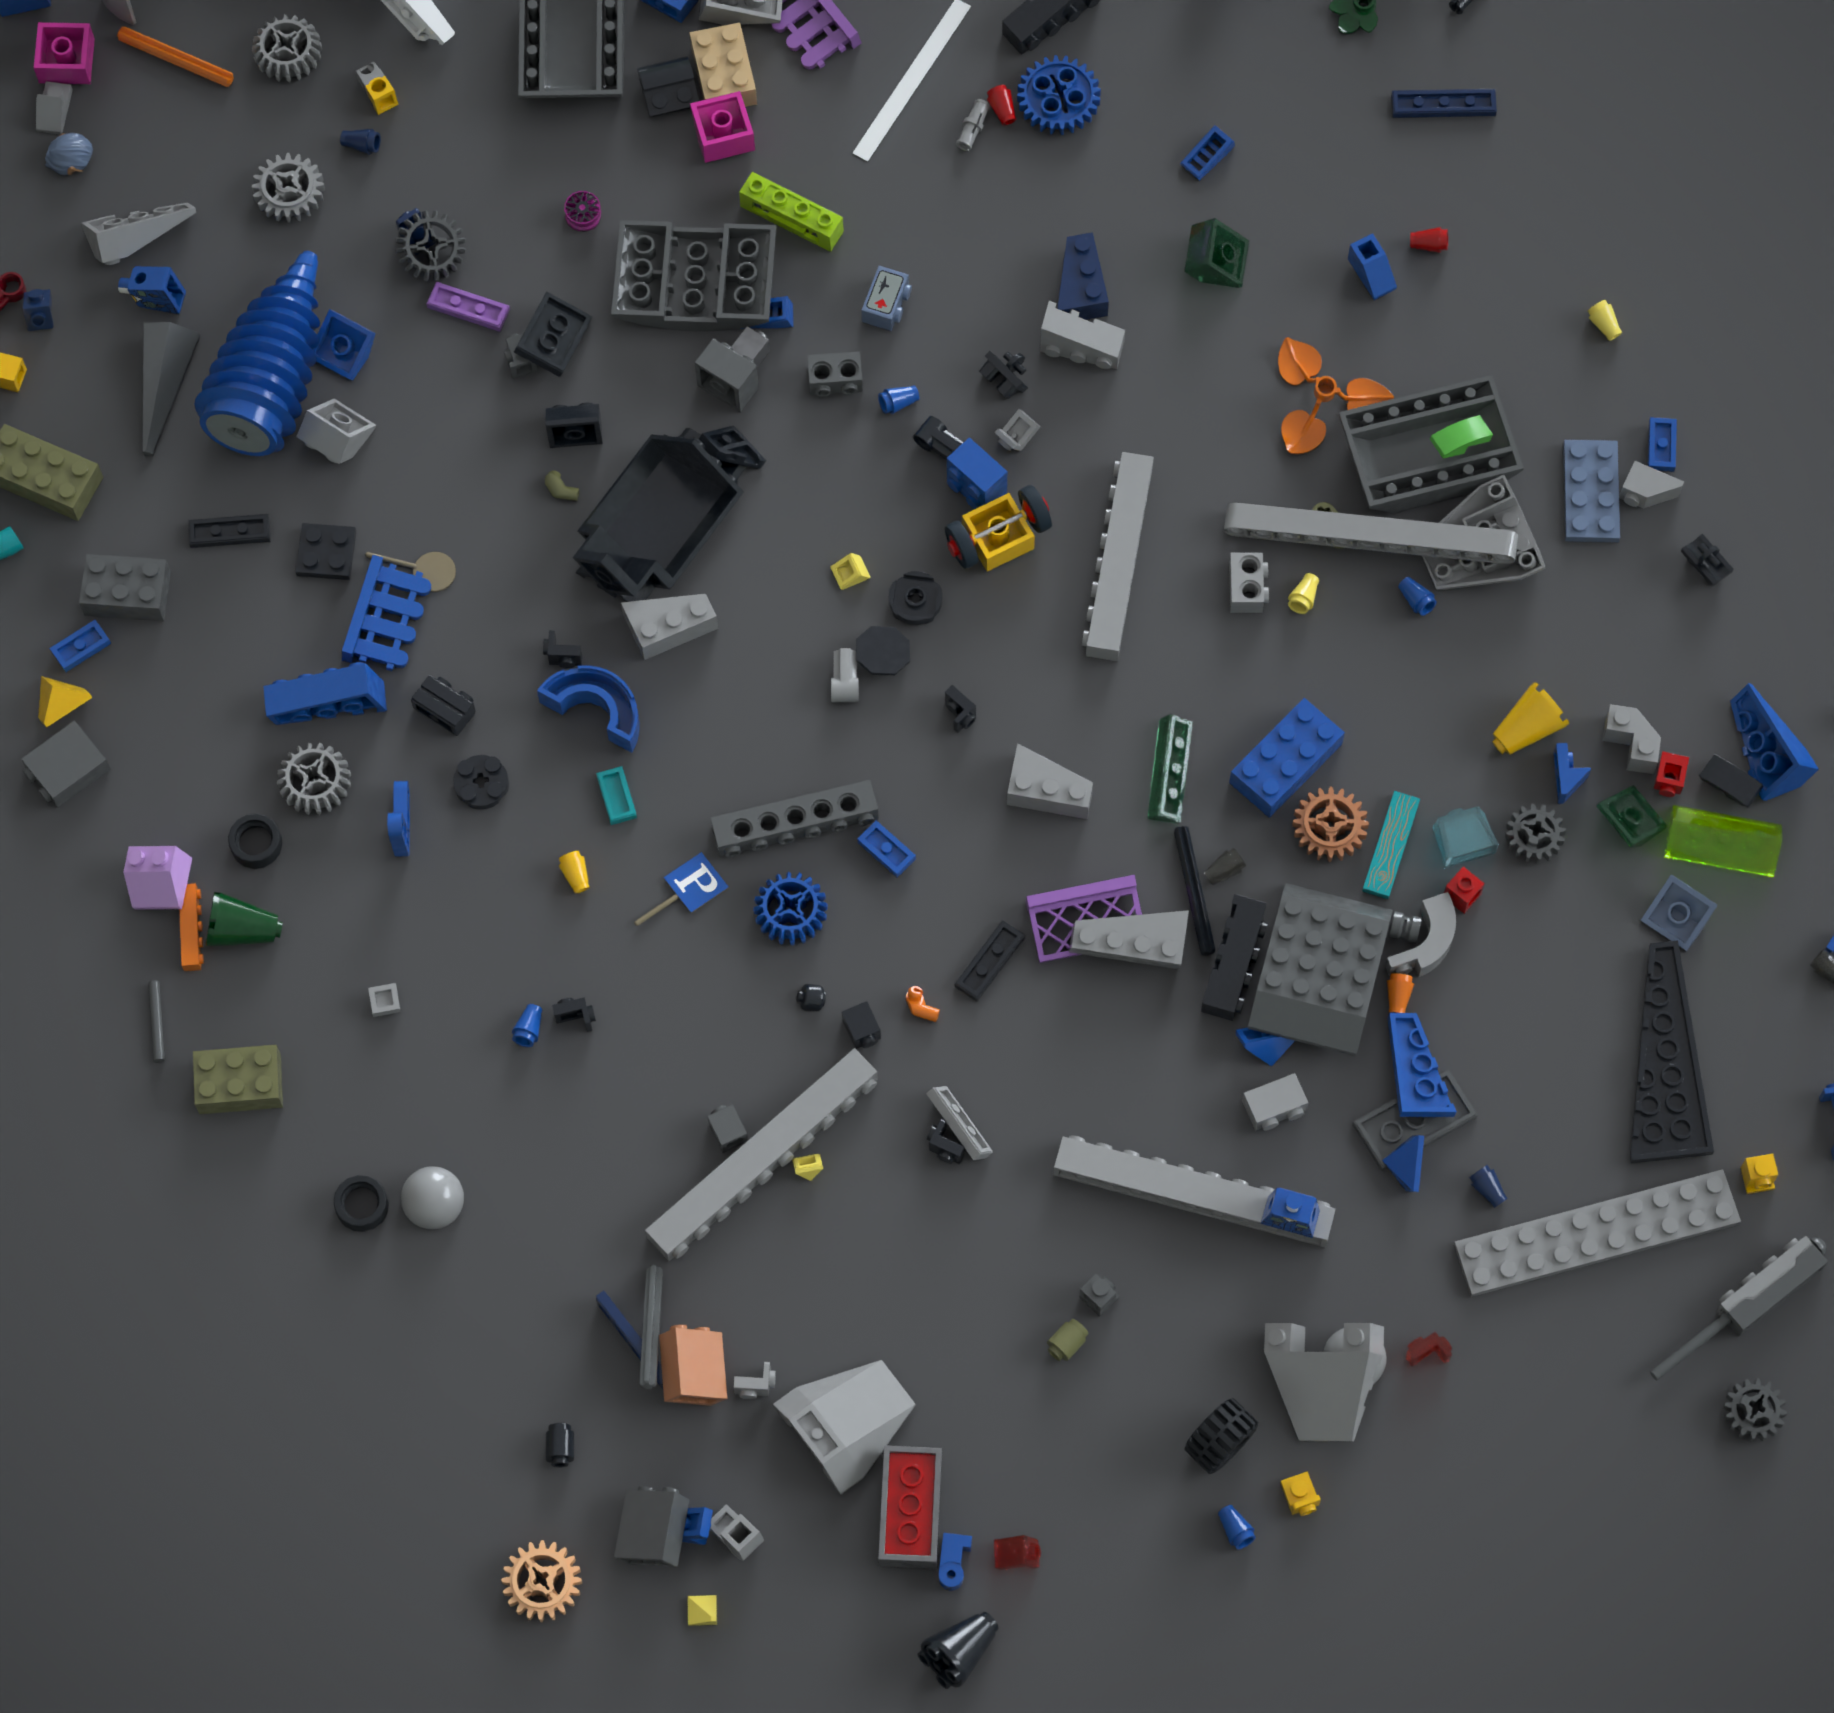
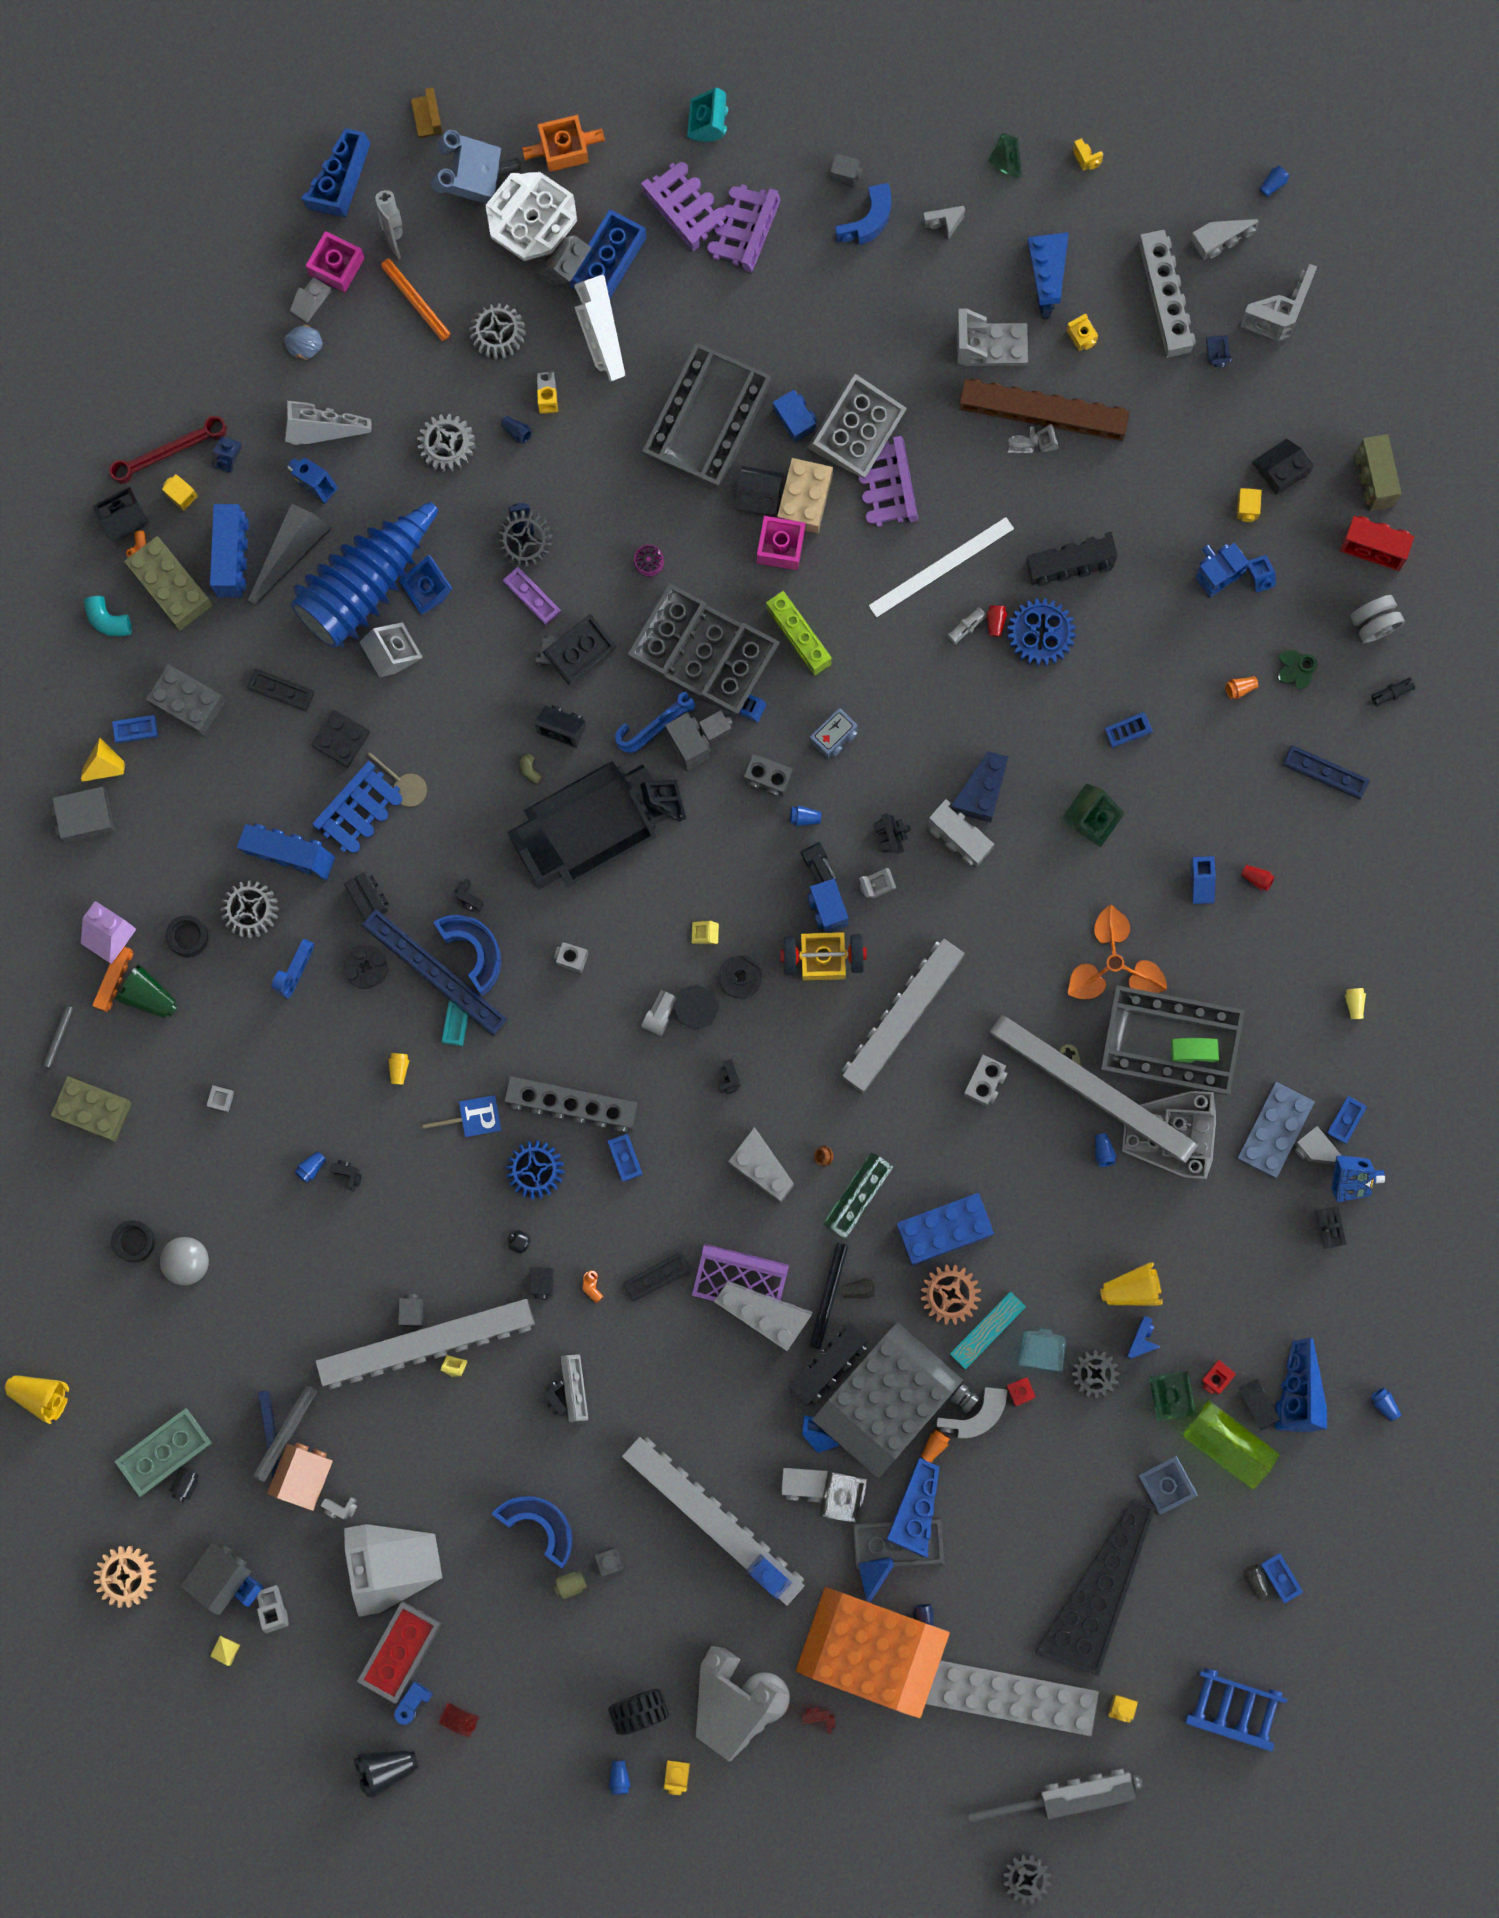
camera: 30 degrees right, 10 degrees up
(96, 404) = (228, 550): none -> blue brick
(335, 1425) = (39, 1396): none -> yellow cone
(516, 1421) = (163, 1452): none -> sand green plate
(564, 747) = (434, 972): none -> dark blue tile
(668, 621) = (554, 911): light grey wedge -> none
(680, 381) = (683, 705): none -> blue piece
(715, 652) = (576, 965): none -> light grey brick
(999, 1273) = (548, 1515): none -> blue brick
(1104, 743) = (823, 1156): none -> dark orange plate
(1303, 57) = (1239, 687): none -> orange cone
(1303, 596) = (1021, 1110): light yellow cone -> none
(1327, 1095) = (843, 1497): none -> clear smoke tile
(1449, 1244) = (872, 1652): none -> orange slope
(1630, 727) = (1207, 1329): light grey brick -> none
(1704, 496) = (1354, 1178): none -> blue torso

